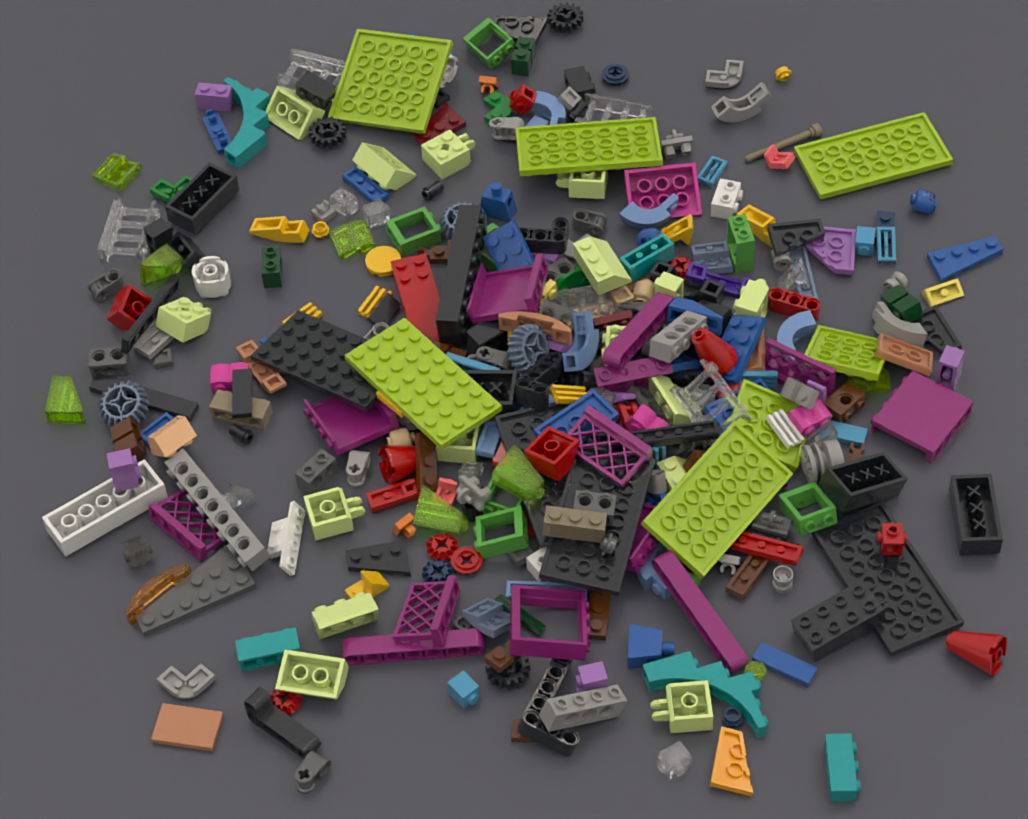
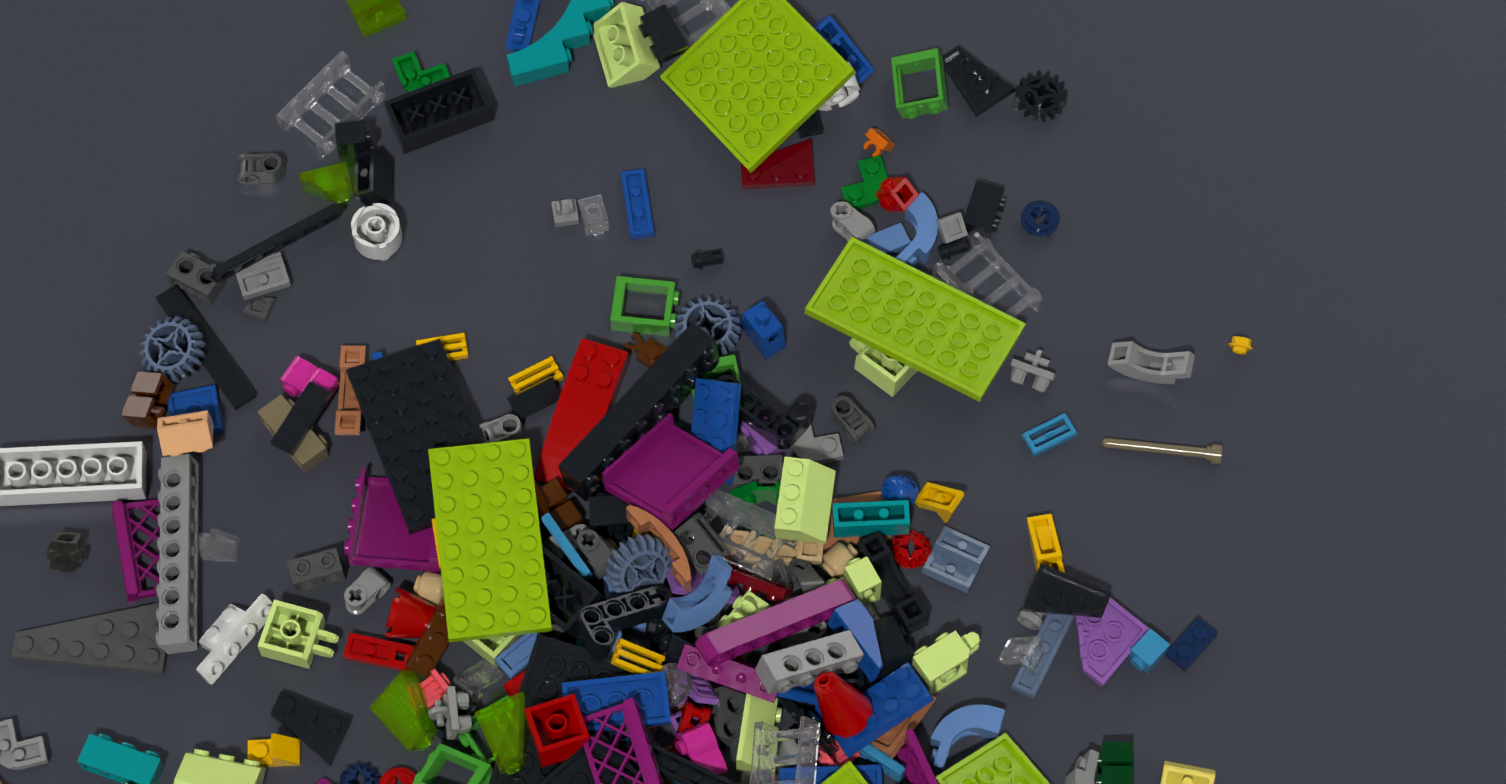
camera: 30 degrees right, 15 degrees up
(63, 402) = (116, 301): clear neon green slope -> none
(124, 469) = (101, 450): medium lavender brick -> none
(127, 307) = (262, 217): red slope -> none
(153, 588) = (51, 609): clear orange slope -> none
(183, 319) = (309, 272): yellowish green hinge -> none
(244, 435) = (276, 471): black pin -> none
(271, 266) = (453, 257): dark green brick -> none
(280, 229) = (498, 208): yellow slope -> none
(320, 229) = (543, 230): yellow plate -> none
(327, 132) = (637, 106): black gear -> none
(351, 238) = (570, 271): clear neon green slope -> none
(375, 213) = (618, 254): clear brick -> none
(379, 260) = (584, 321): yellow tile -> none
(382, 166) = (674, 190): yellowish green slope -> none
(405, 525) = (362, 701): orange tile -> none
(441, 553) = (379, 761): red gear -> none
(447, 153) = (757, 217): yellowish green hinge -> none
(523, 56) = (939, 131): dark green piece -> none
(549, 291) = (720, 499): light yellow plate -> none
(648, 218) = (914, 456): medium blue arch -> none
(653, 185) = (964, 433): dark pink slope -> none
(698, 274) = (937, 600): dark purple slope -> none
(726, 199) = (1032, 488): white brick -> none
(727, 78) = (1167, 309): light grey plate -> none
(740, 242) = (993, 567): bright green window -> none
(777, 159) = (1138, 468): coral bracket -> none
(791, 303) = (997, 675): red beam -> none
(872, 155) = (1256, 534): lime plate -> none
(886, 258) = (1158, 691): dark azure tile -> none
(895, 279) = (1137, 733): light grey wheel -> none
(923, 201) = (1262, 640): blue head -> none
(954, 259) = (1244, 744): blue wing -> none

